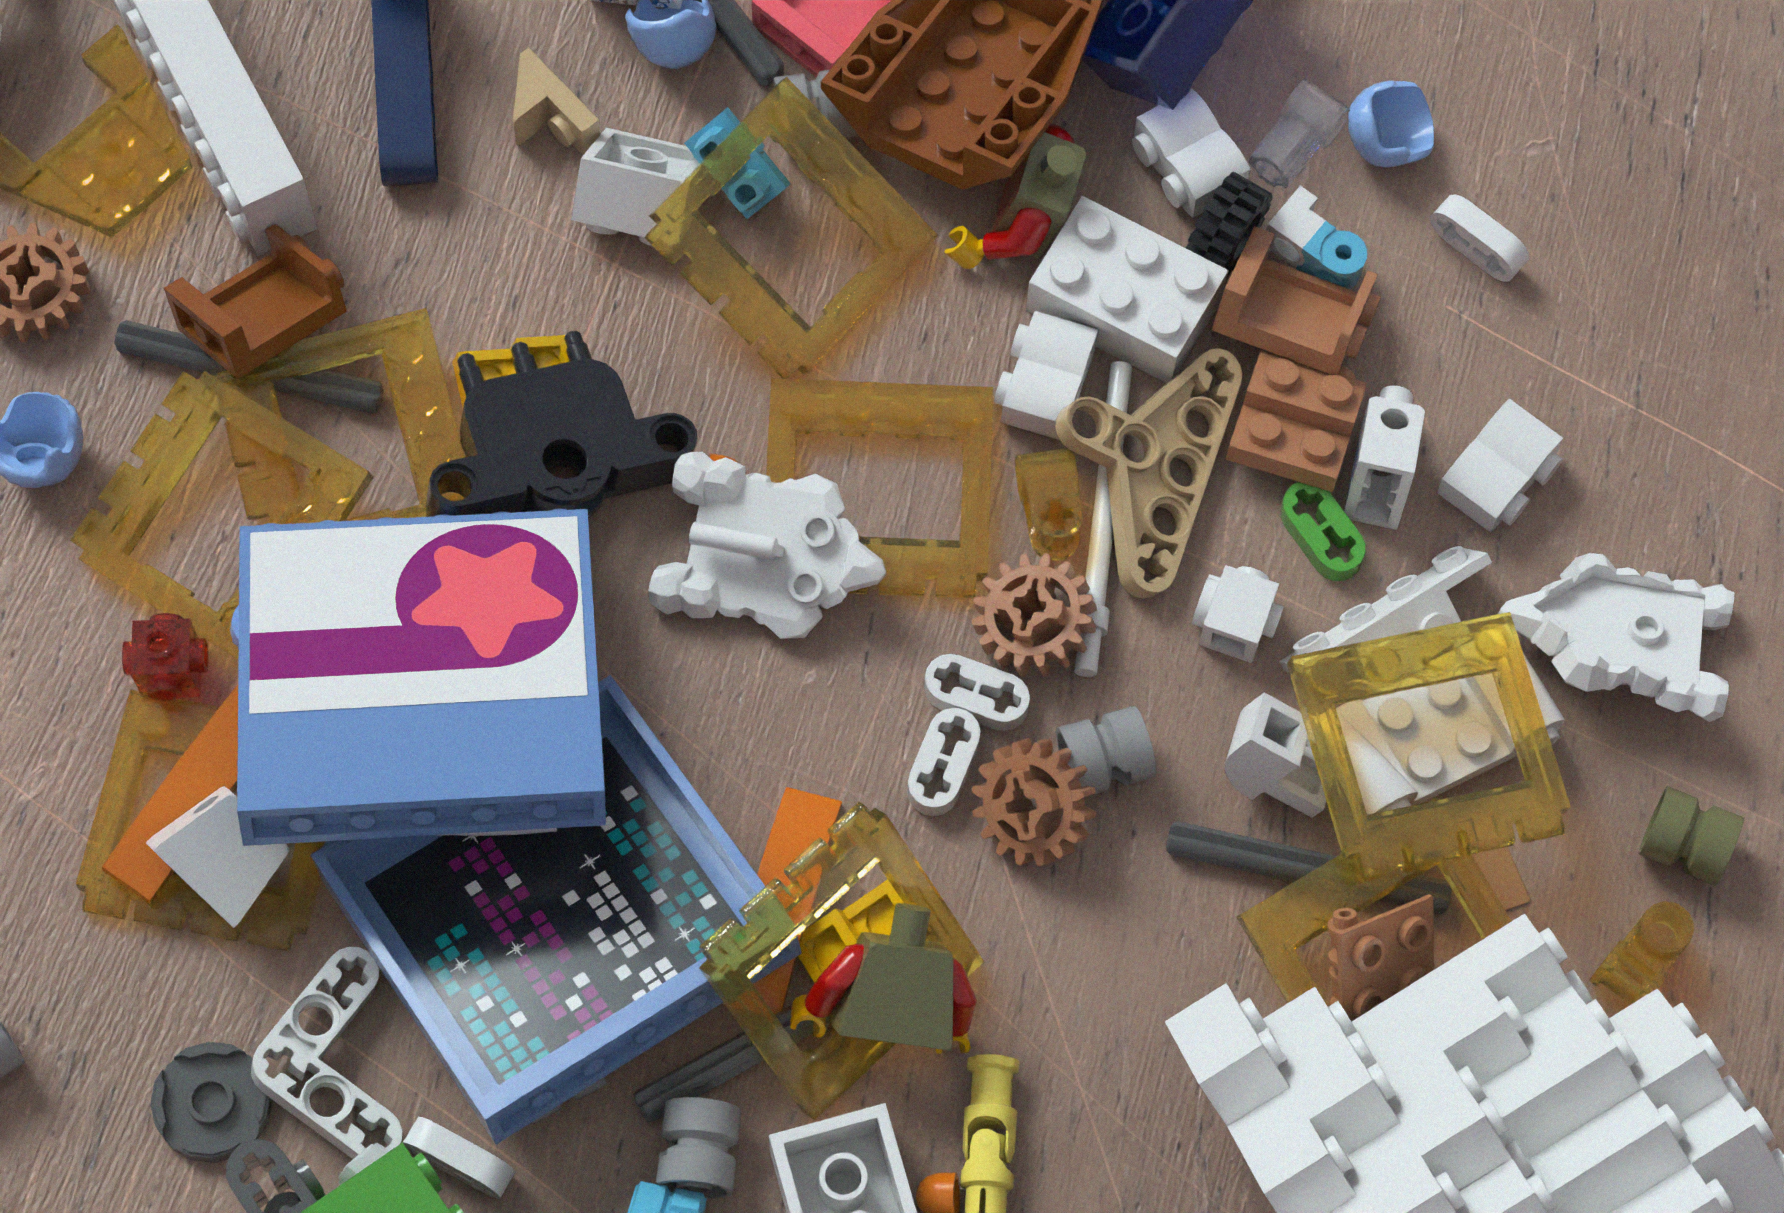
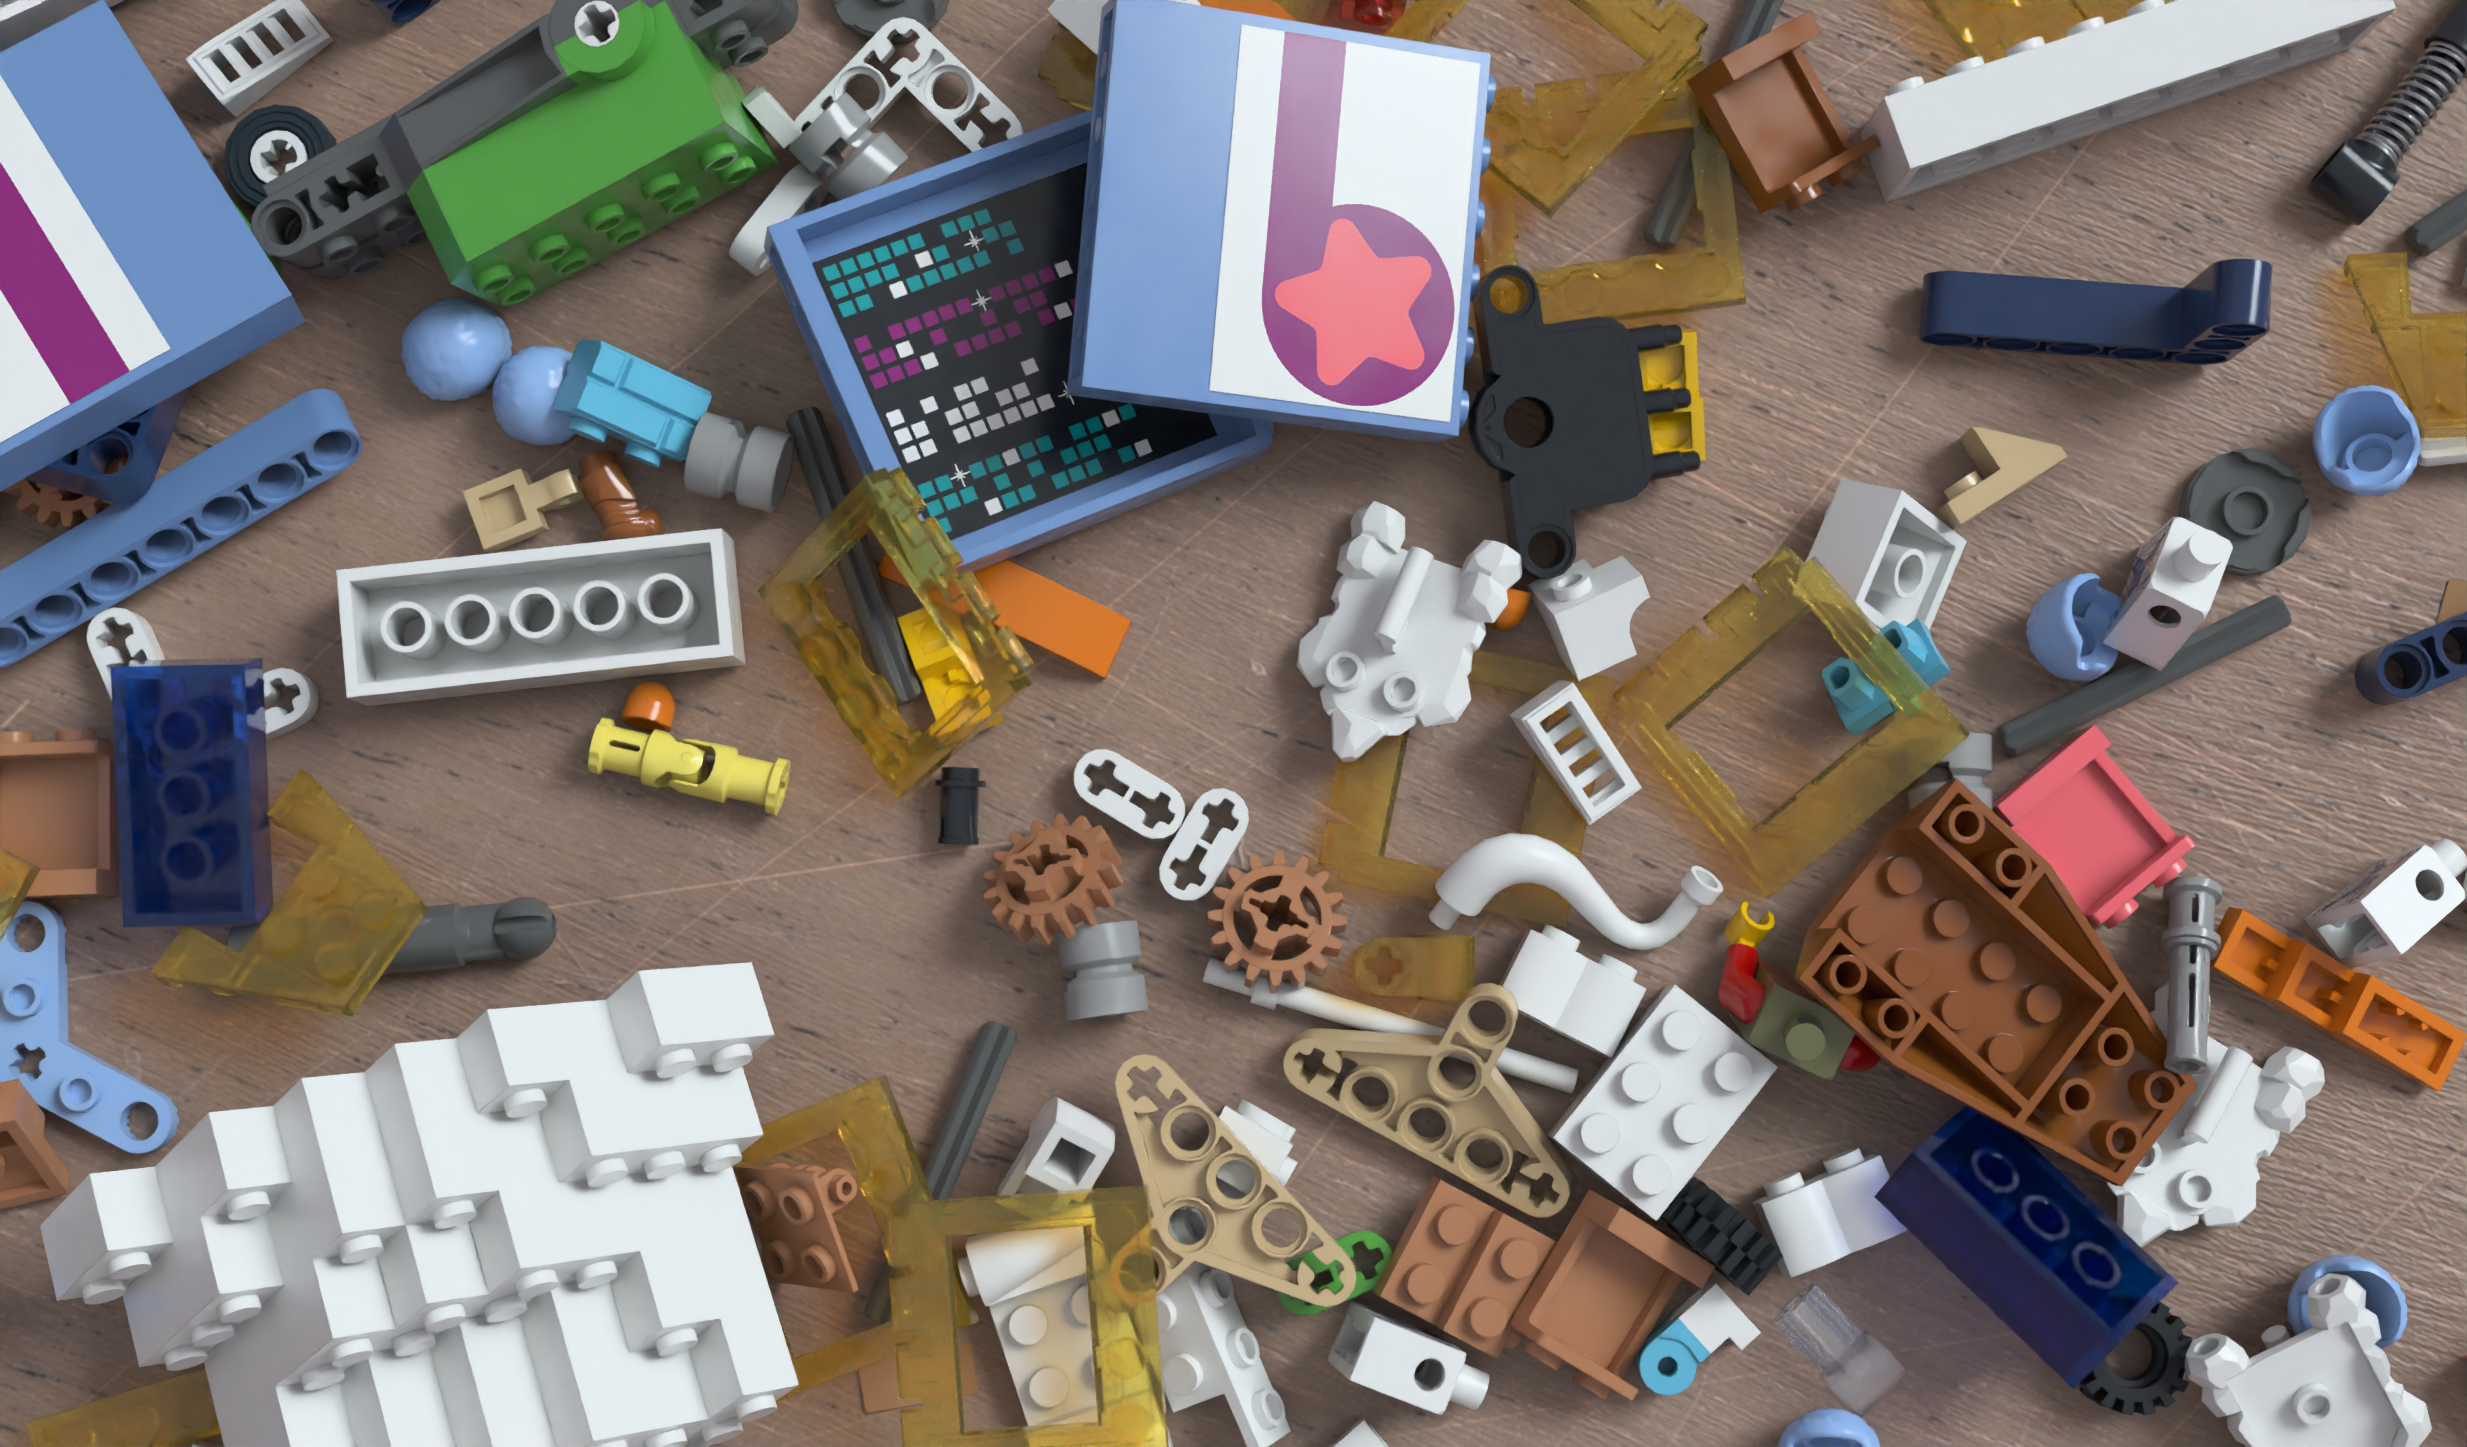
camera: 105 degrees right, 15 degrees up
(387, 1094) = (865, 168): none -> light grey wheel
(721, 396) = (1591, 613): none -> white brick
(821, 421) = (1557, 763): none -> white slope
(893, 989) = (847, 681): olive torso -> none
(944, 406) = (1532, 859): none -> white animal
(982, 902) = (959, 805): none -> black pin
(1272, 639) = (1233, 1224): none -> tan beam

